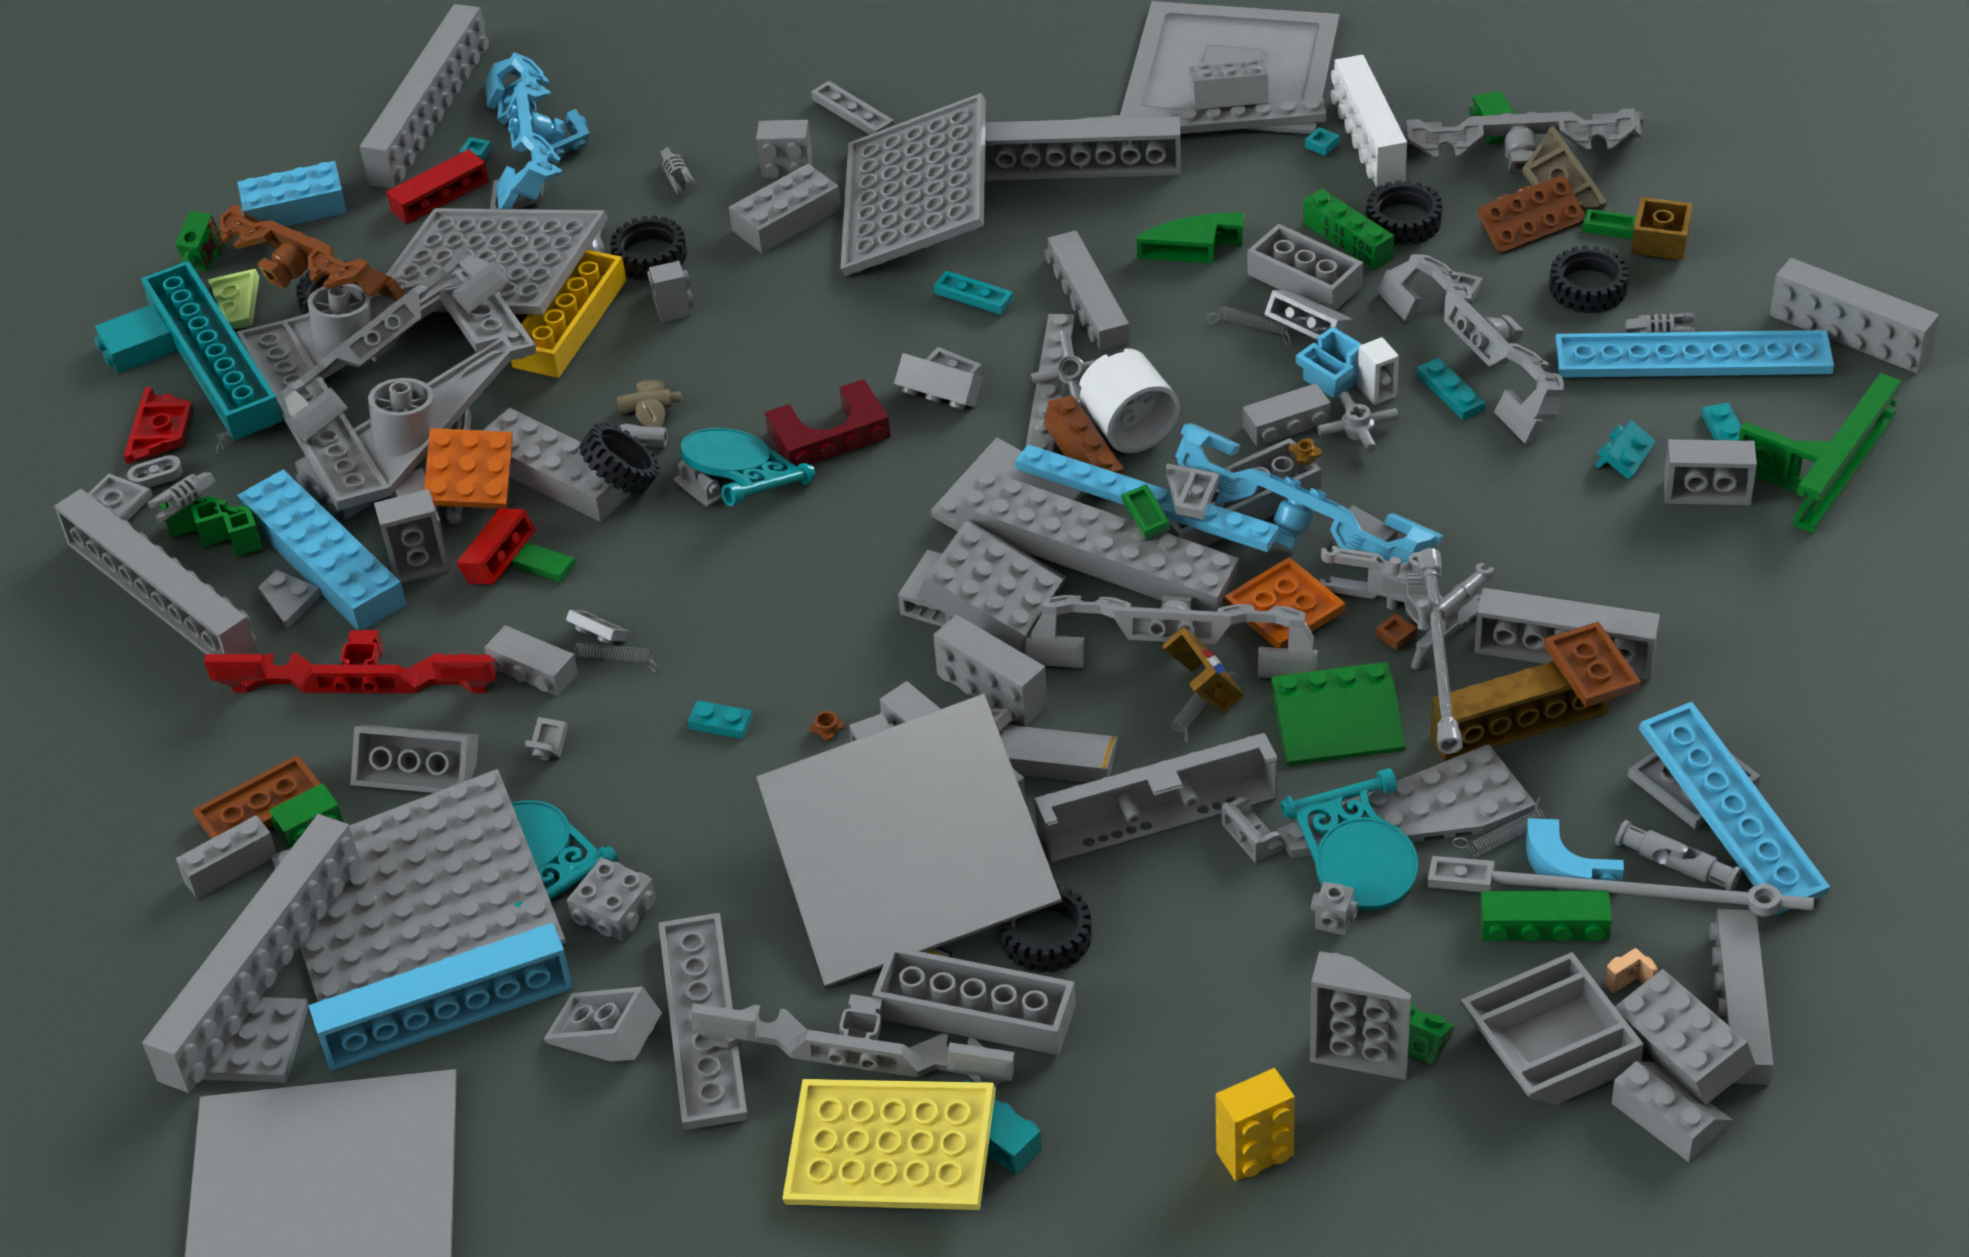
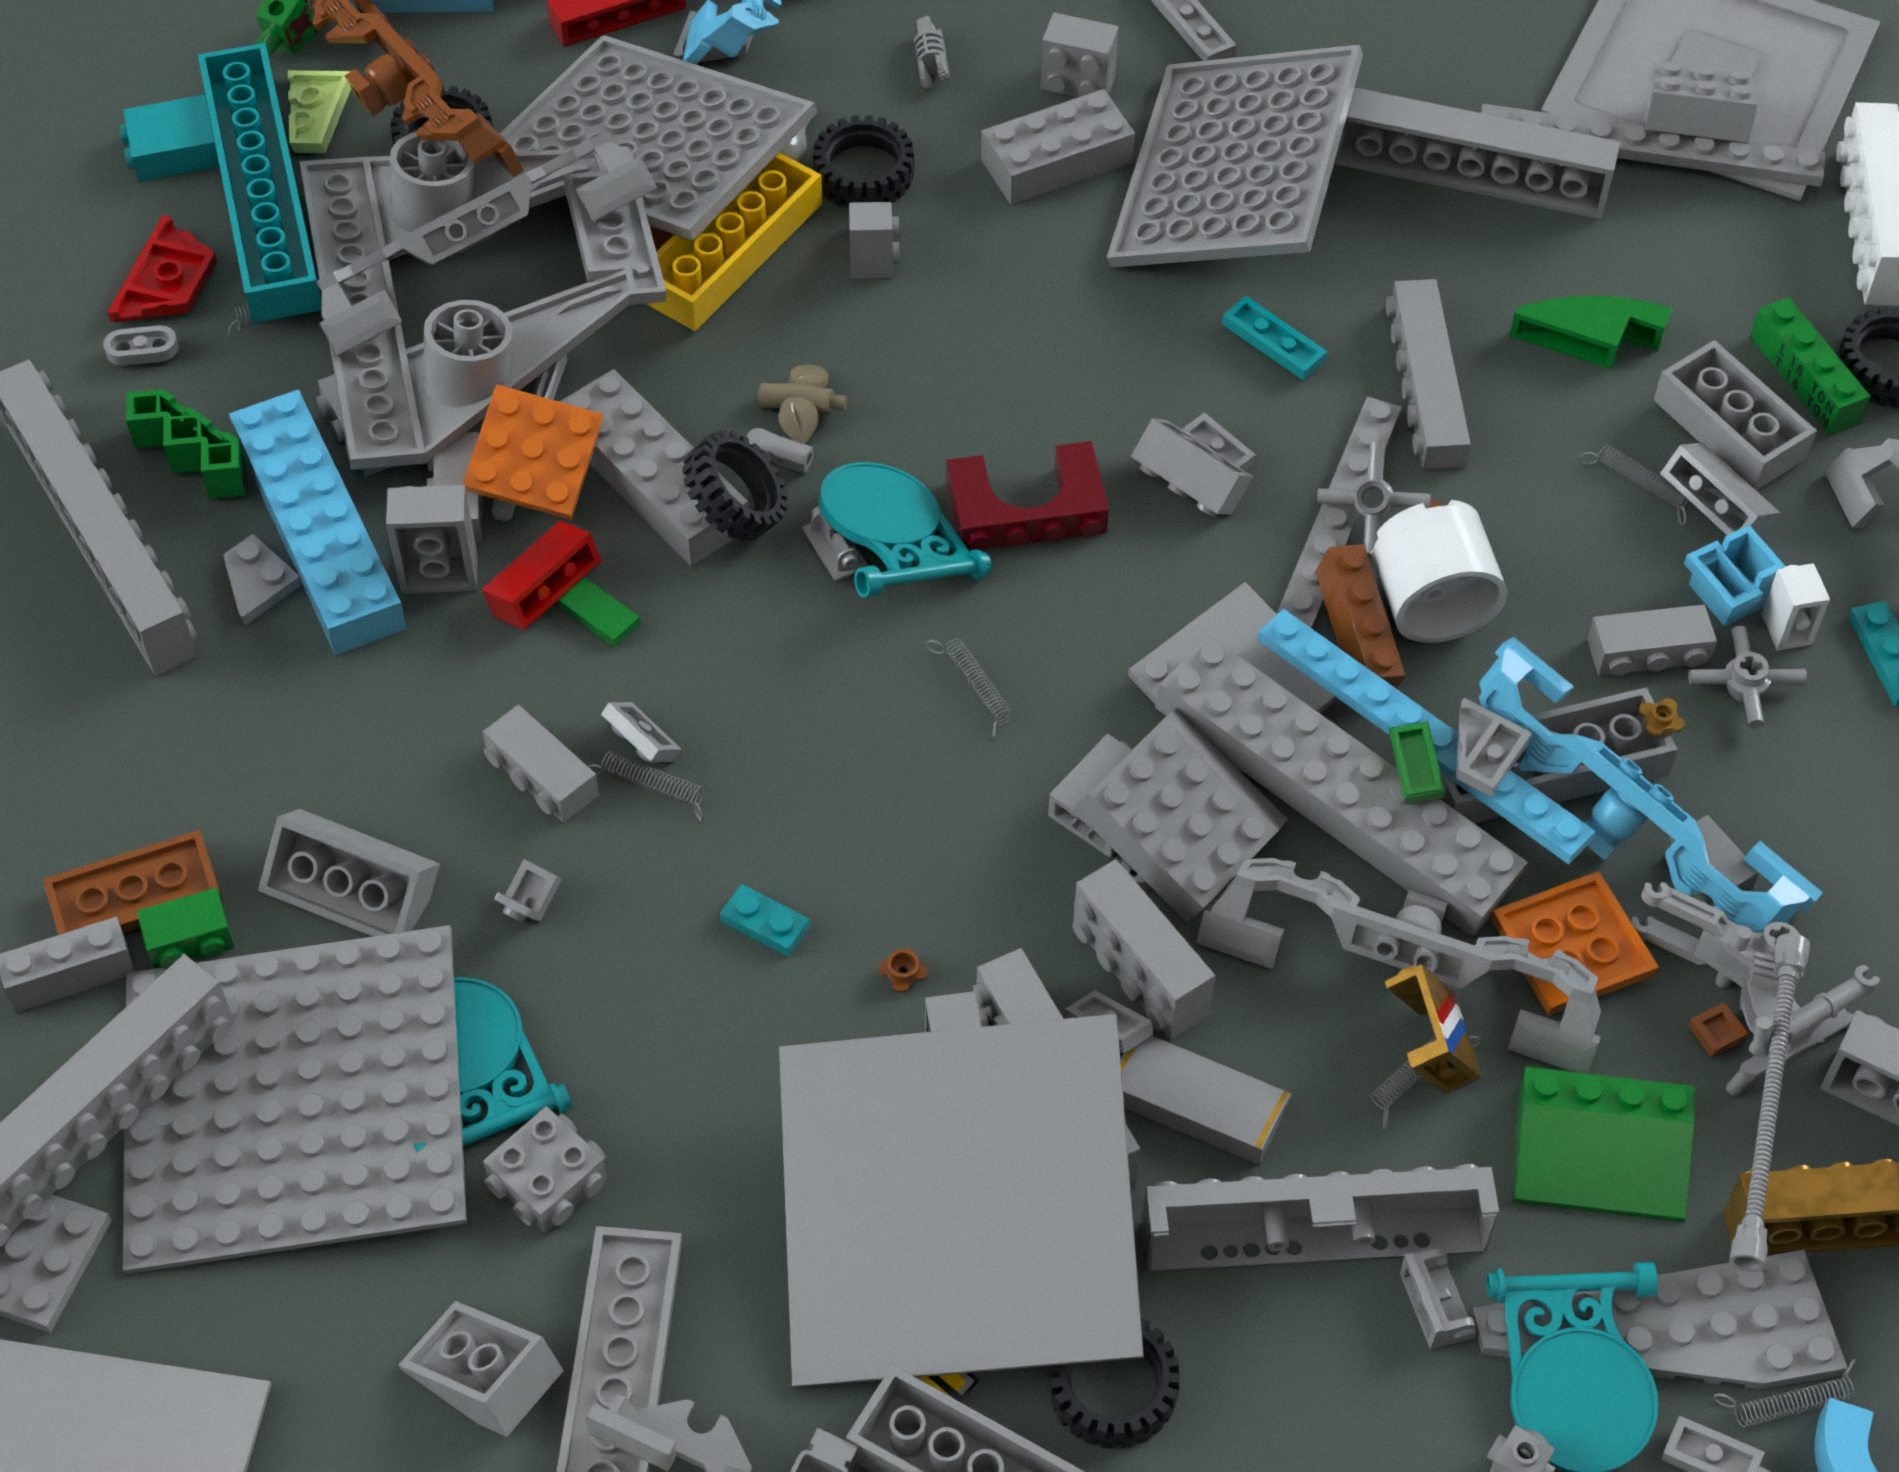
camera: 10 degrees right, 10 degrees up
(121, 495) = (82, 374): light grey plate -> none
(181, 494) = (154, 400): light grey hinge -> none
(357, 674) = (316, 718): red piece -> none
(441, 996) = (276, 1268): medium azure brick -> none
(827, 545) = (996, 722): none -> light grey piece
(1322, 141) = (1807, 216): teal plate -> none

